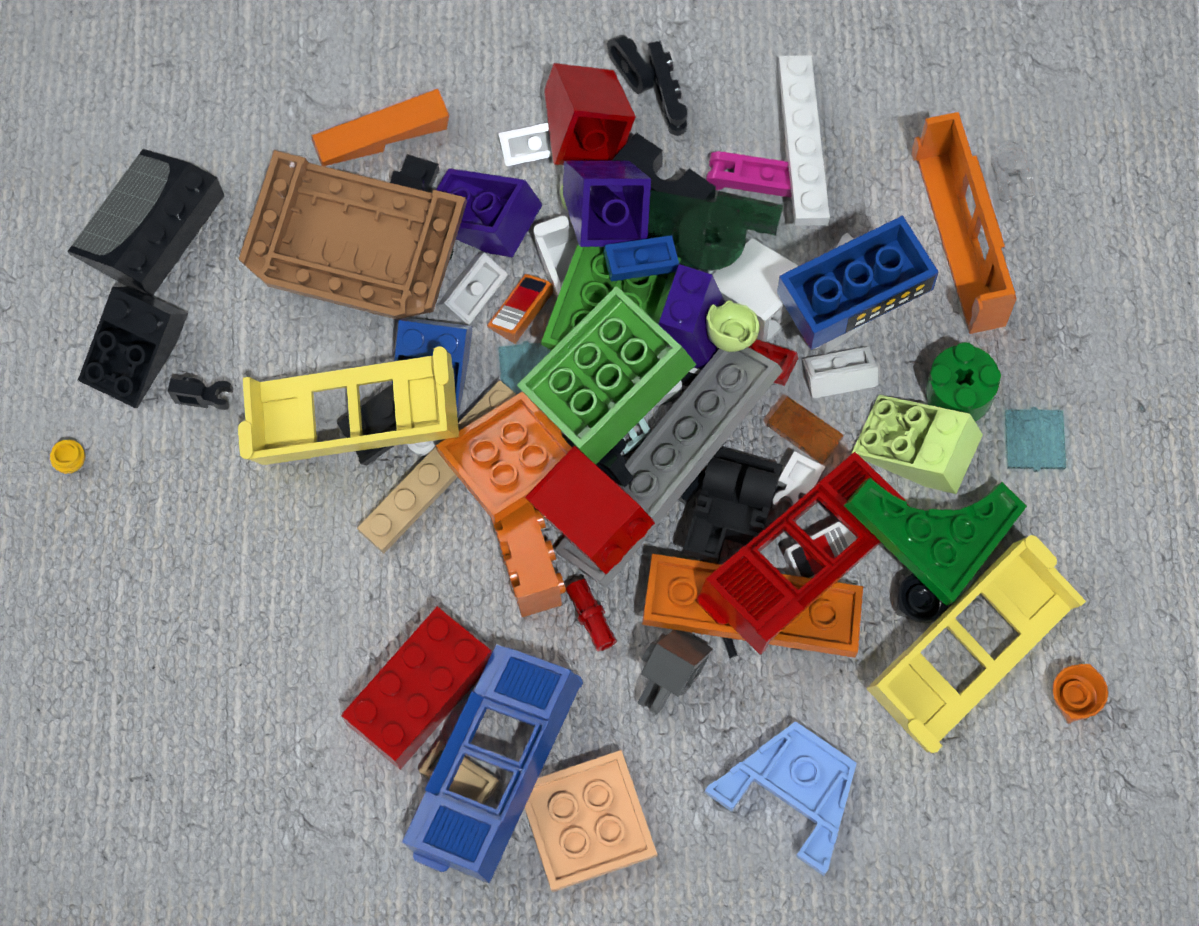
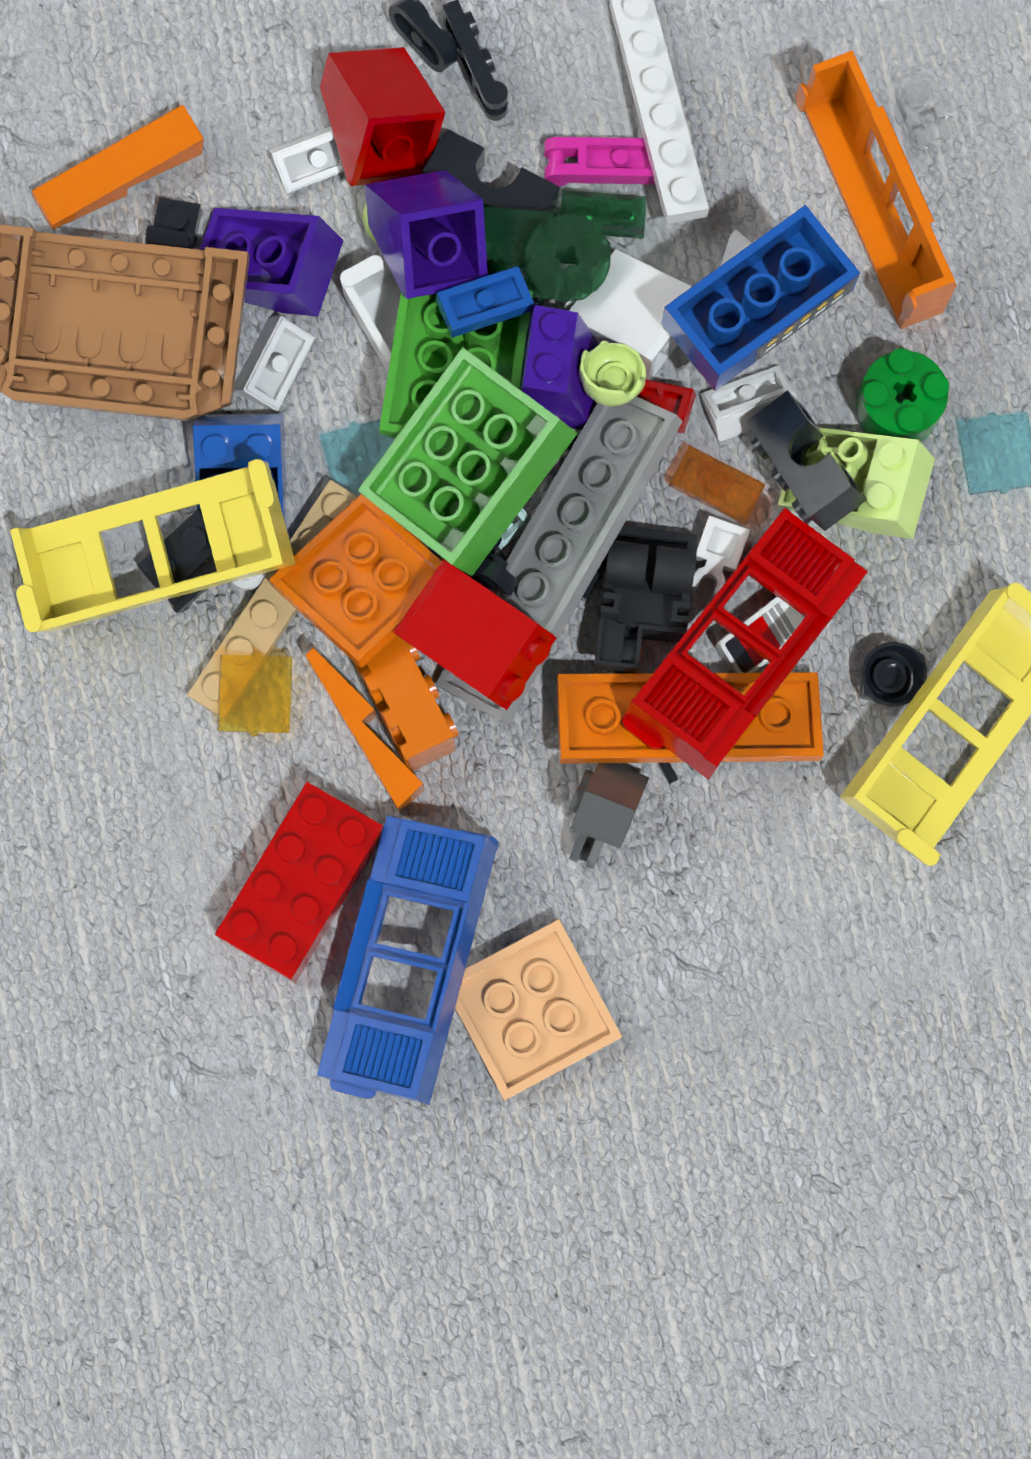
camera: 15 degrees left, 10 degrees up
(409, 534) = (254, 693): none -> clear yellow piece
(469, 780) = (385, 988): tan tile -> none
(488, 563) = (357, 713): none -> orange slope
(521, 307) = (339, 379): slope -> none
(591, 615) = (494, 758): red pin -> none
(802, 774) = (781, 913): light blue wing -> none
(886, 440) = (784, 435): none -> black arch
(936, 544) = (902, 609): green plate -> none

